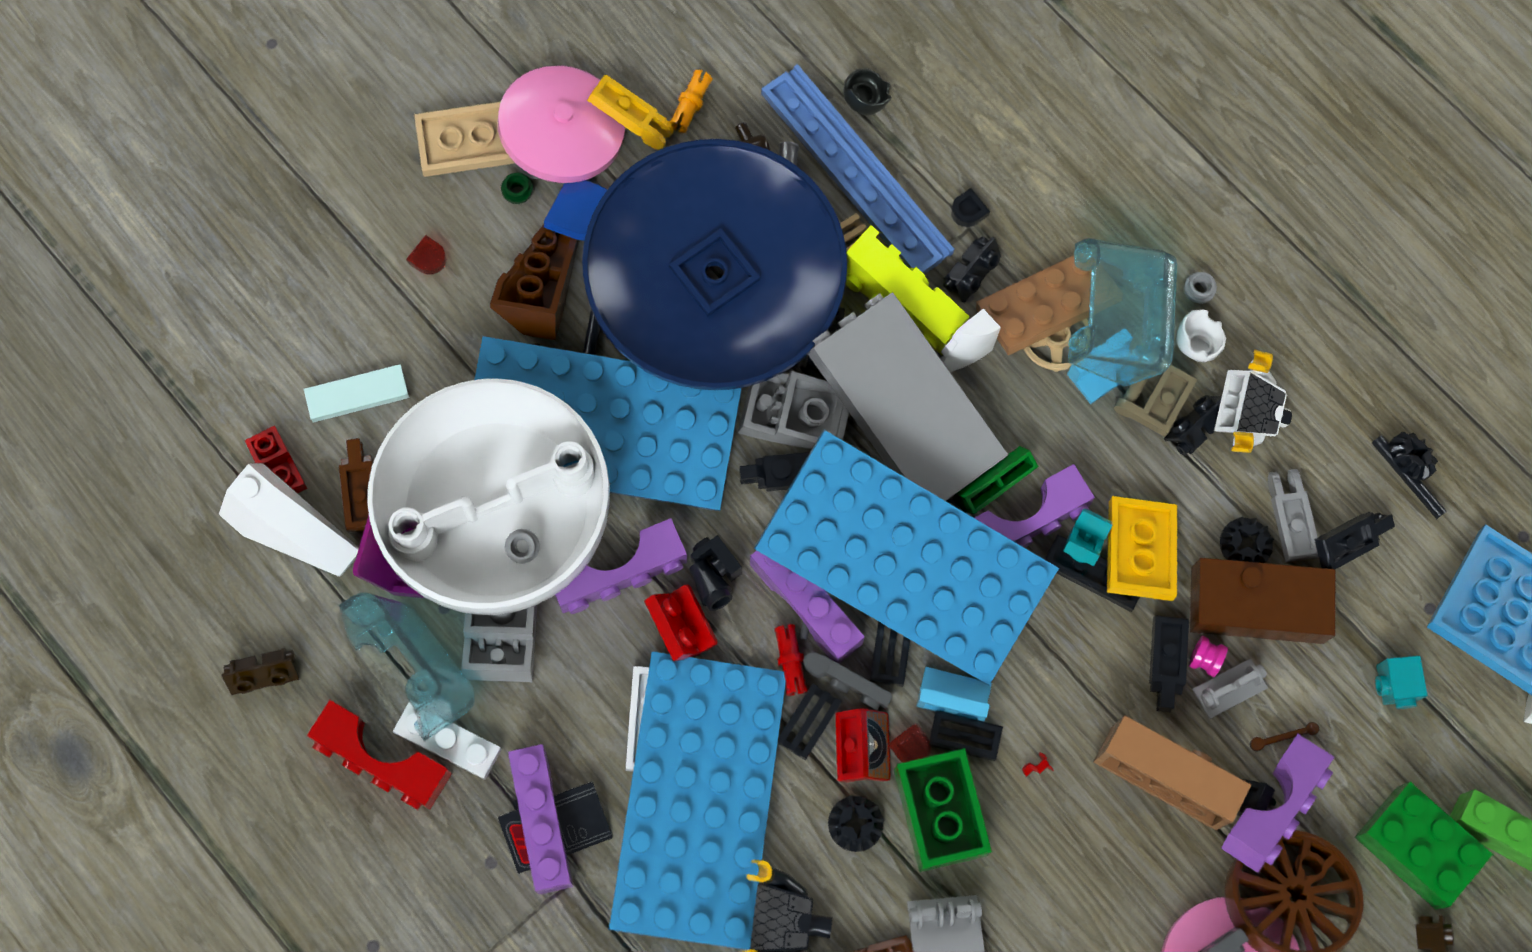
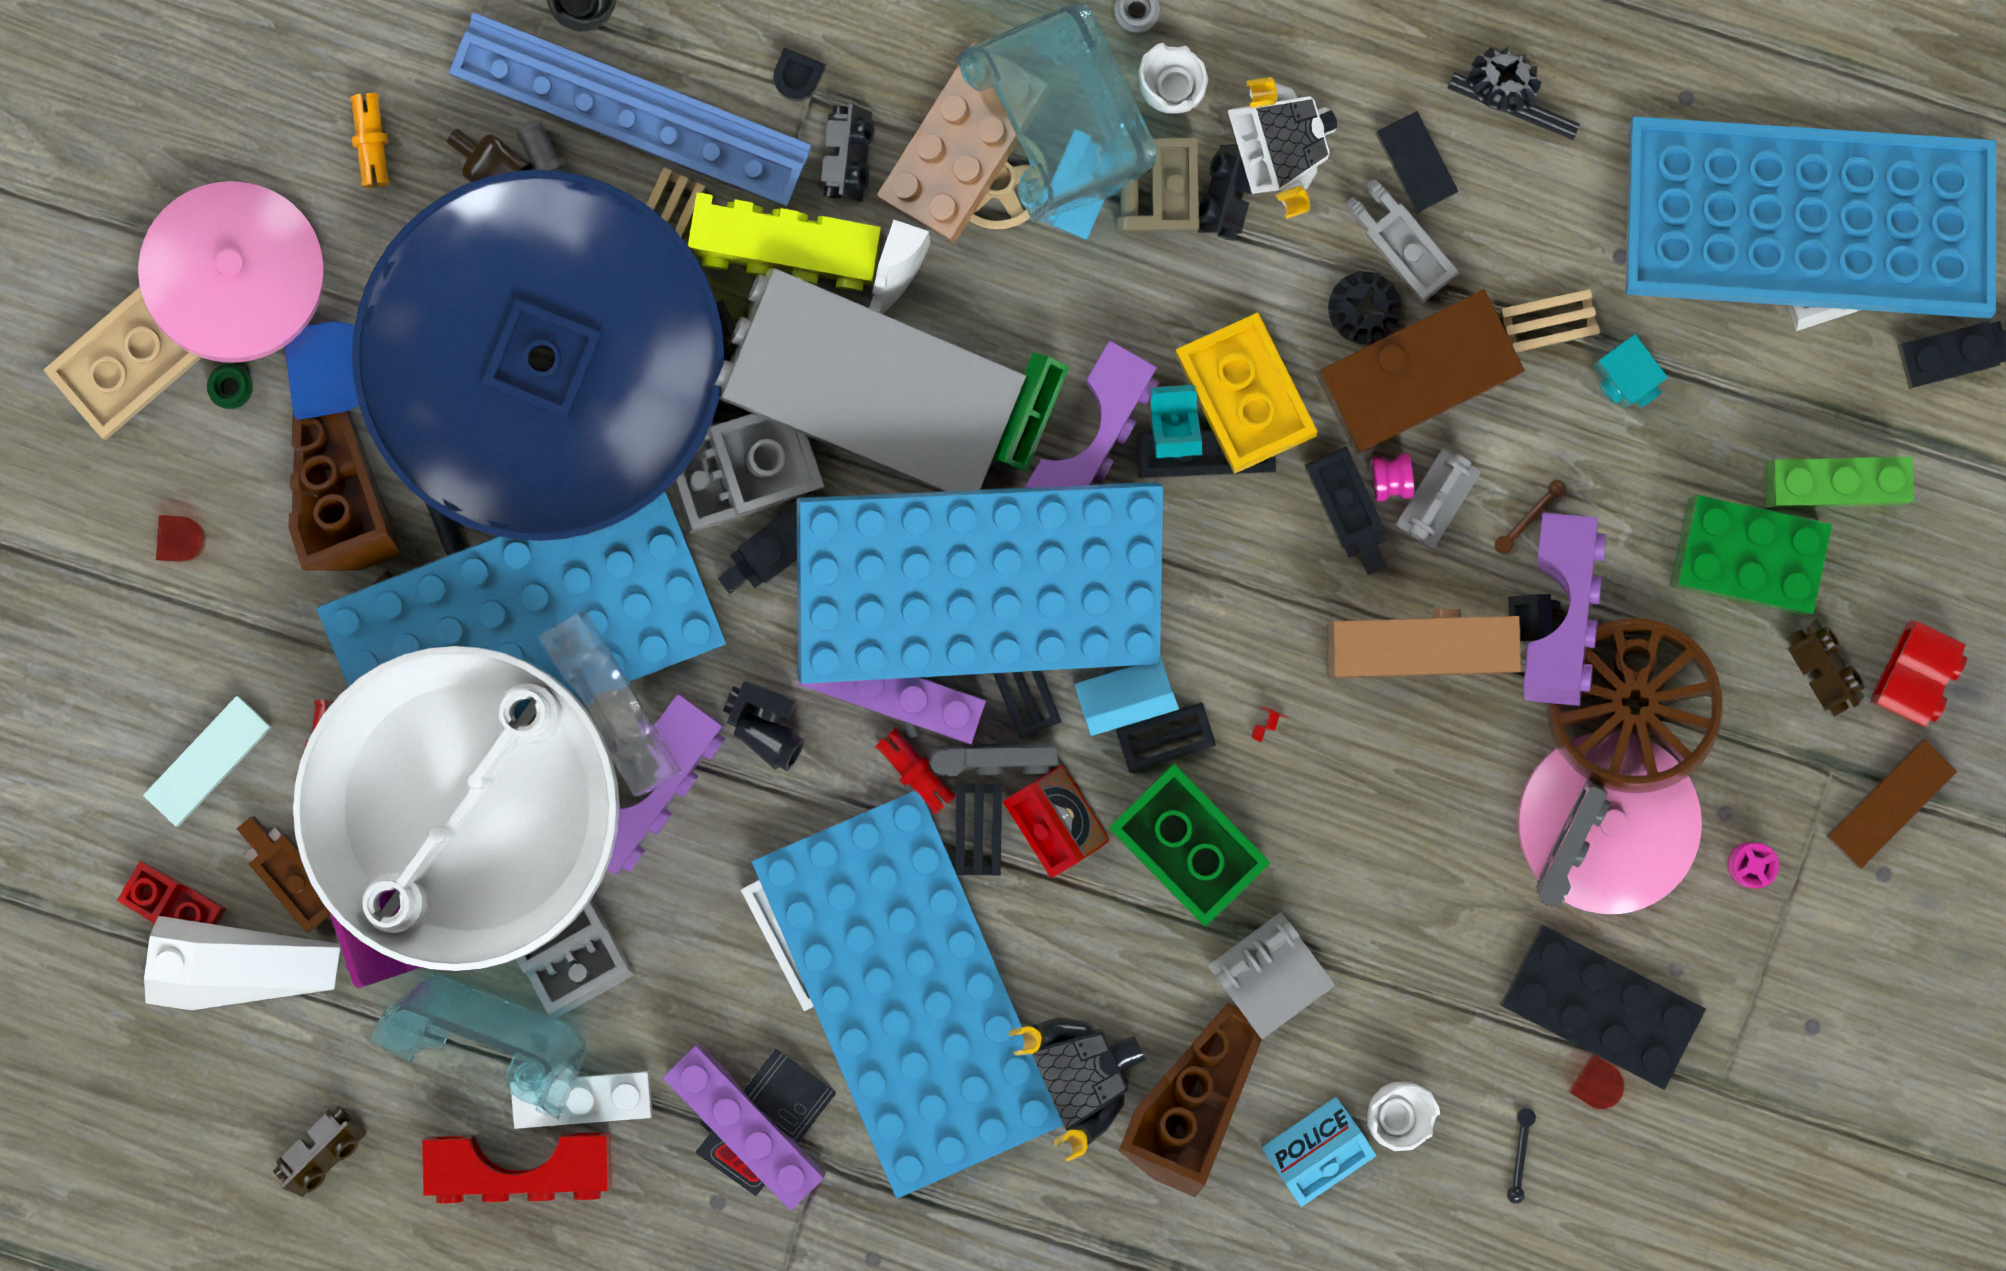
camera: 25 degrees left, 15 degrees up
(511, 546) = (533, 850): light grey plate -> none
(627, 495) = (602, 686): none -> clear arch
(631, 112) = (307, 206): yellow hinge -> none
(681, 623) = (764, 808): red bracket -> none
(846, 837) = (1077, 912): black gear -> none
(911, 744) = (1111, 788): clear red tile -> none
(1328, 475) = (1416, 162): none -> black tile
(1352, 539) = (1485, 232): black hinge -> none
(1391, 628) = (1587, 313): none -> tan tile

